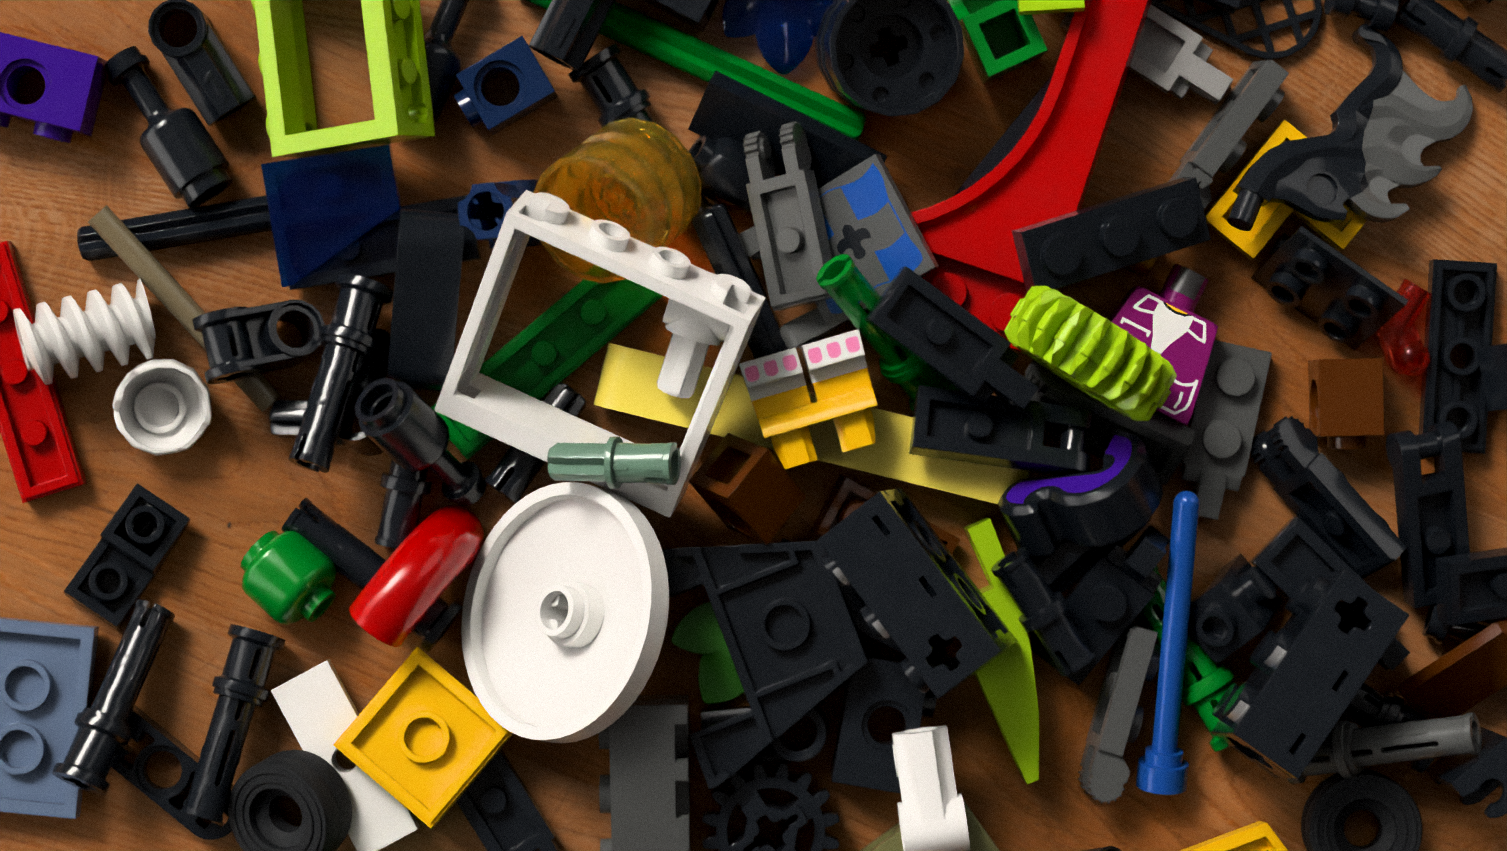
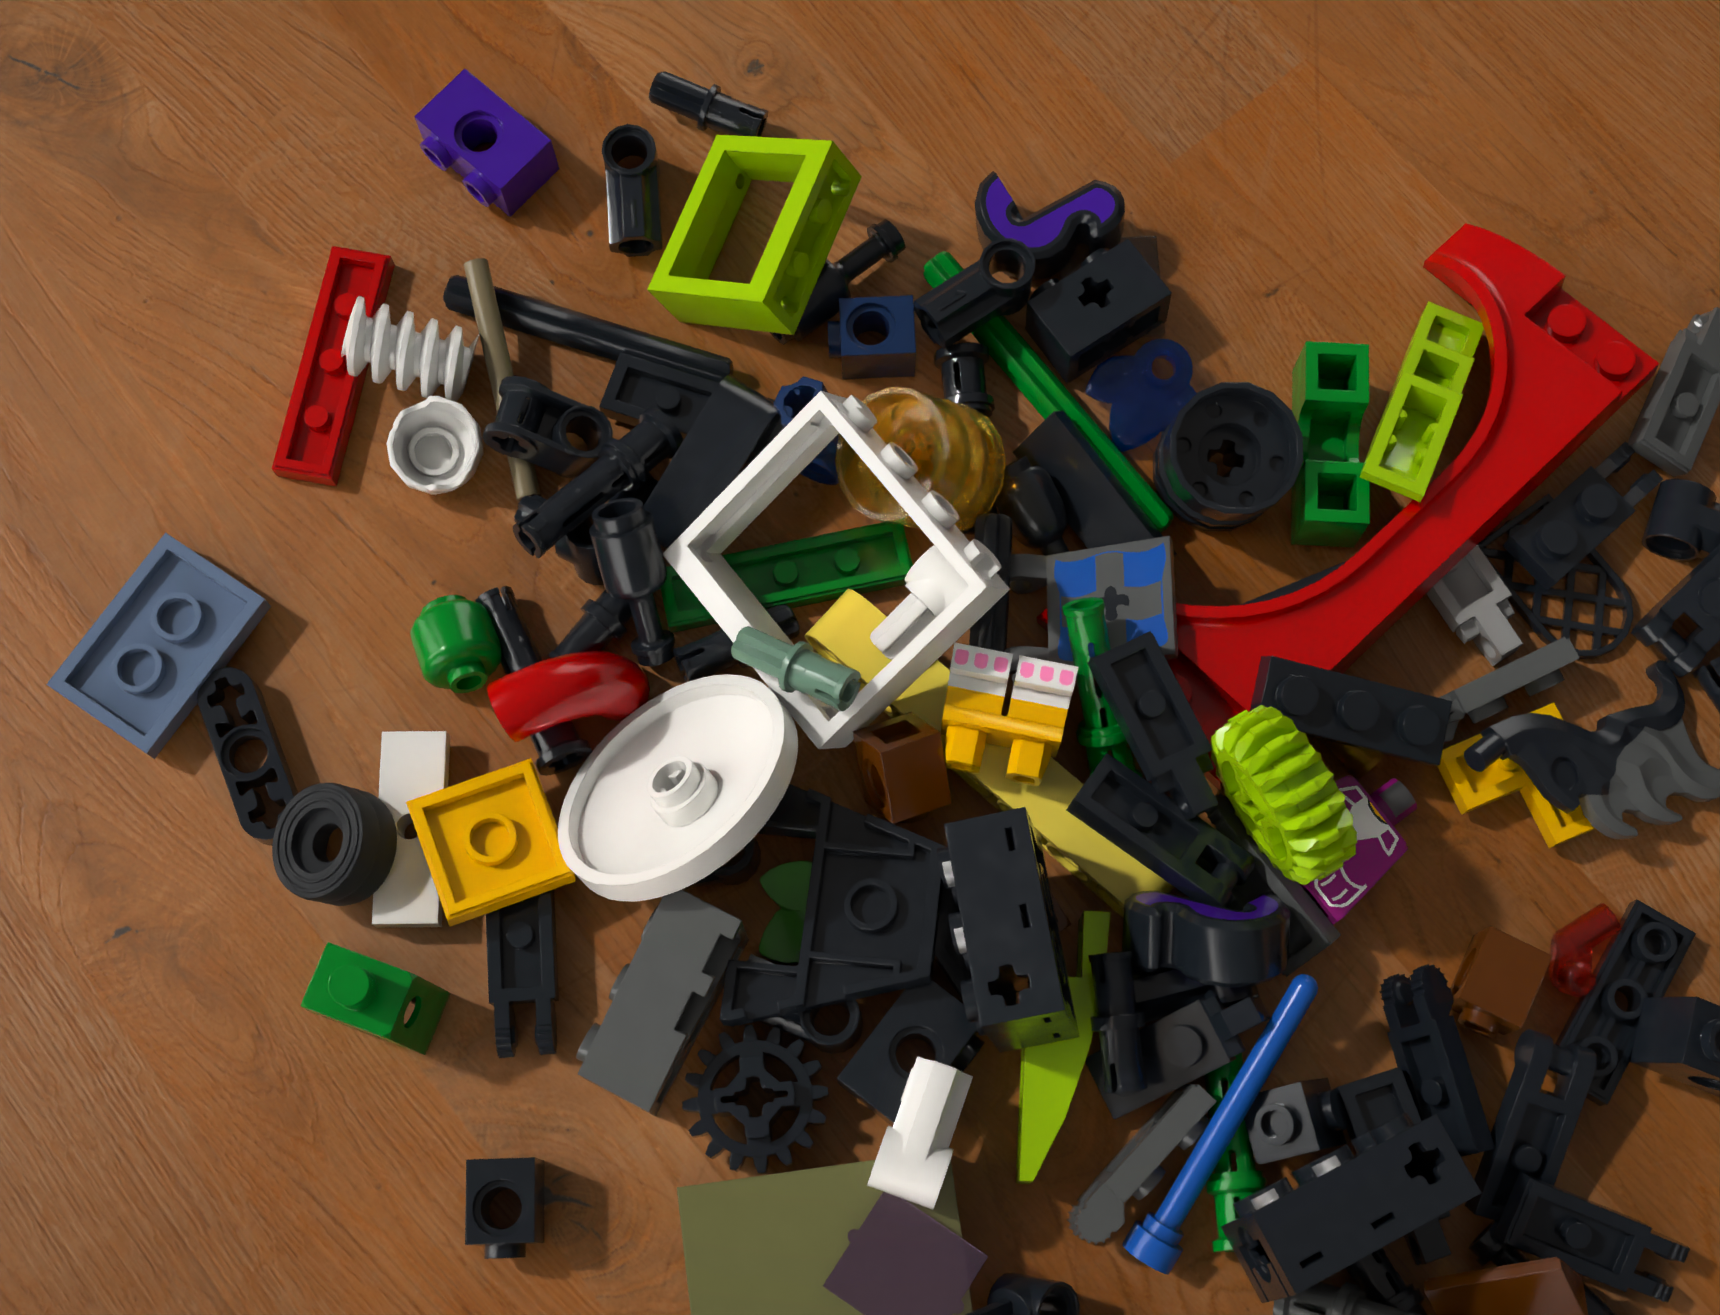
camera: 25 degrees right, 15 degrees down
(105, 724) = (220, 680): black pin -> none
(127, 556) = (333, 561): black slope -> none
(174, 138) = (575, 241): black piece -> none
(239, 692) = (362, 723): black pin -> none
(327, 204) = (670, 349): clear blue wing -> none
(787, 218) = (1061, 556): dark grey hinge -> none
(1224, 423) = (1369, 947): dark grey hinge -> none
(1327, 288) = (1530, 866): black hinge -> none

